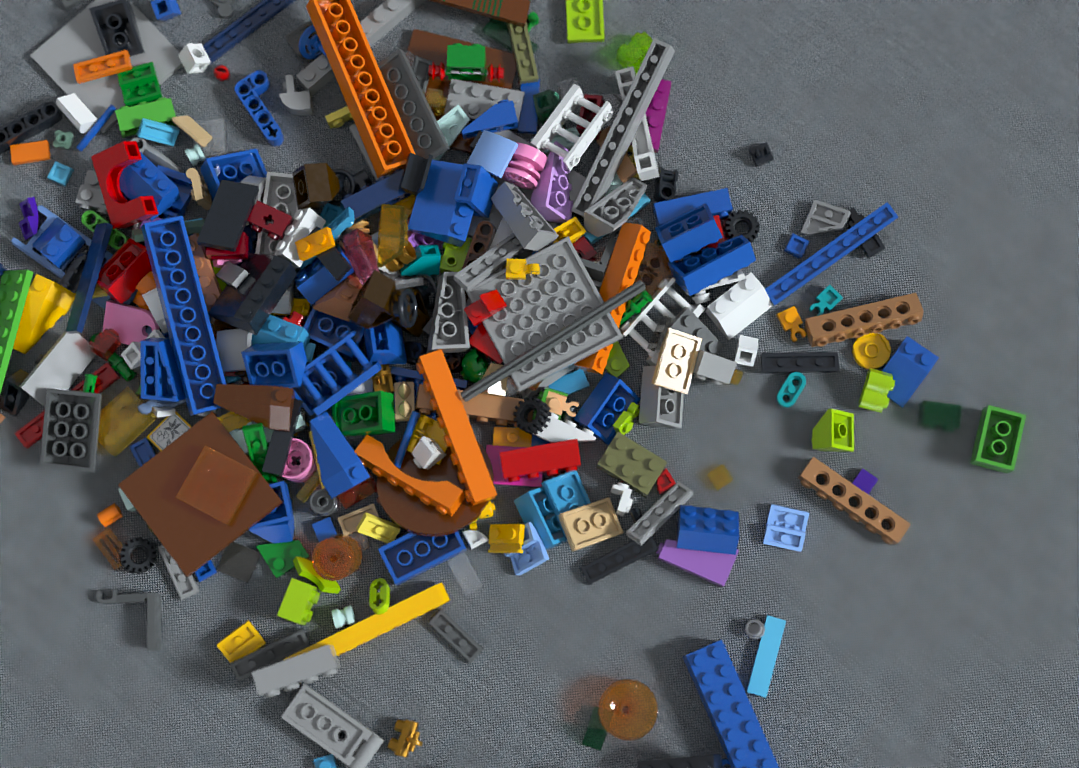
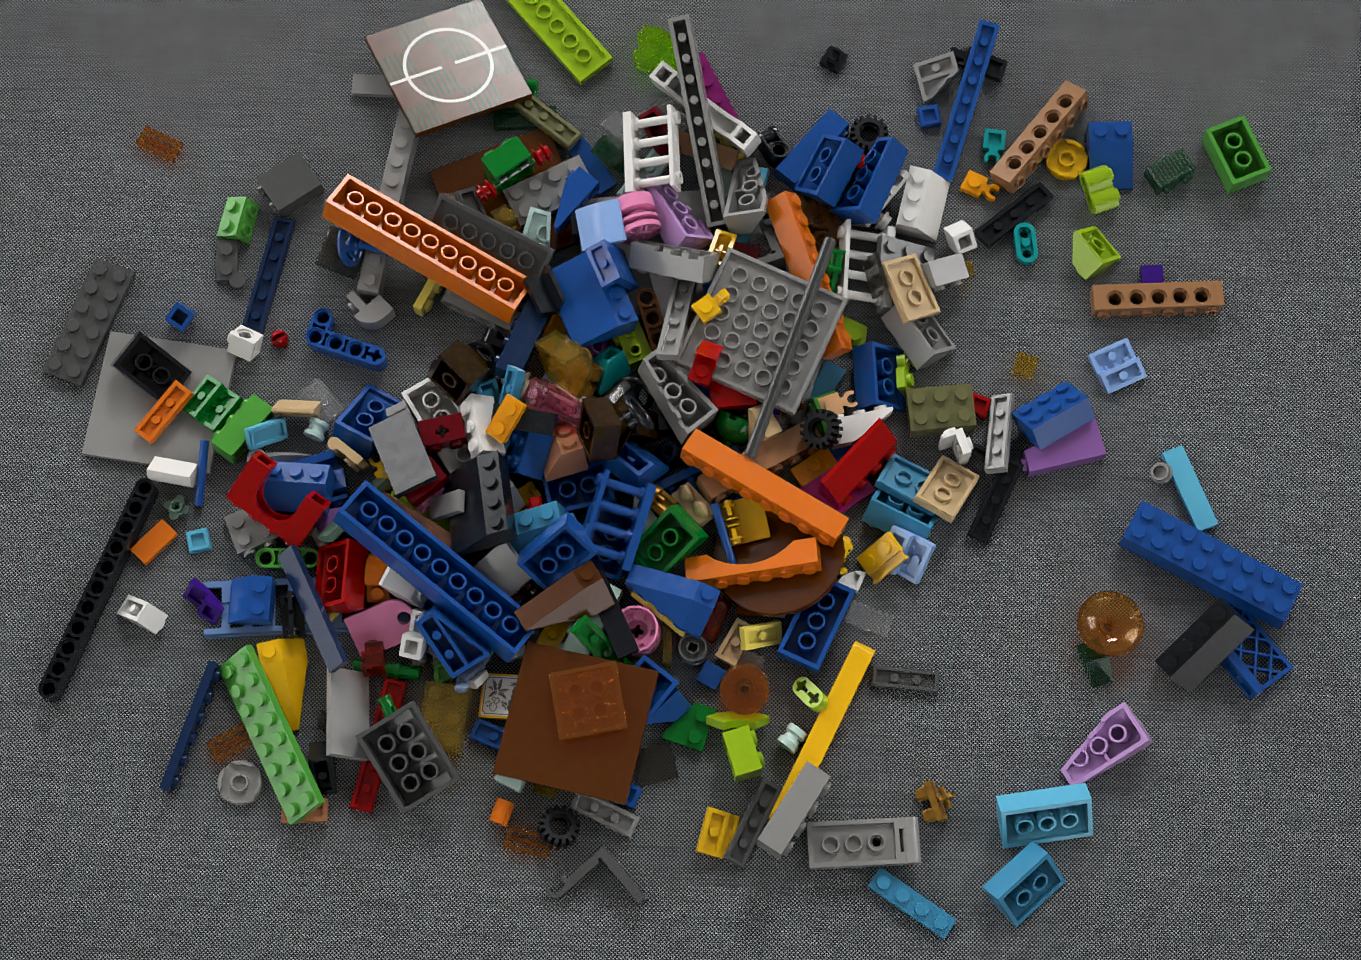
camera: 35 degrees left, 5 degrees down
(427, 453) = (754, 532): white slope -> none

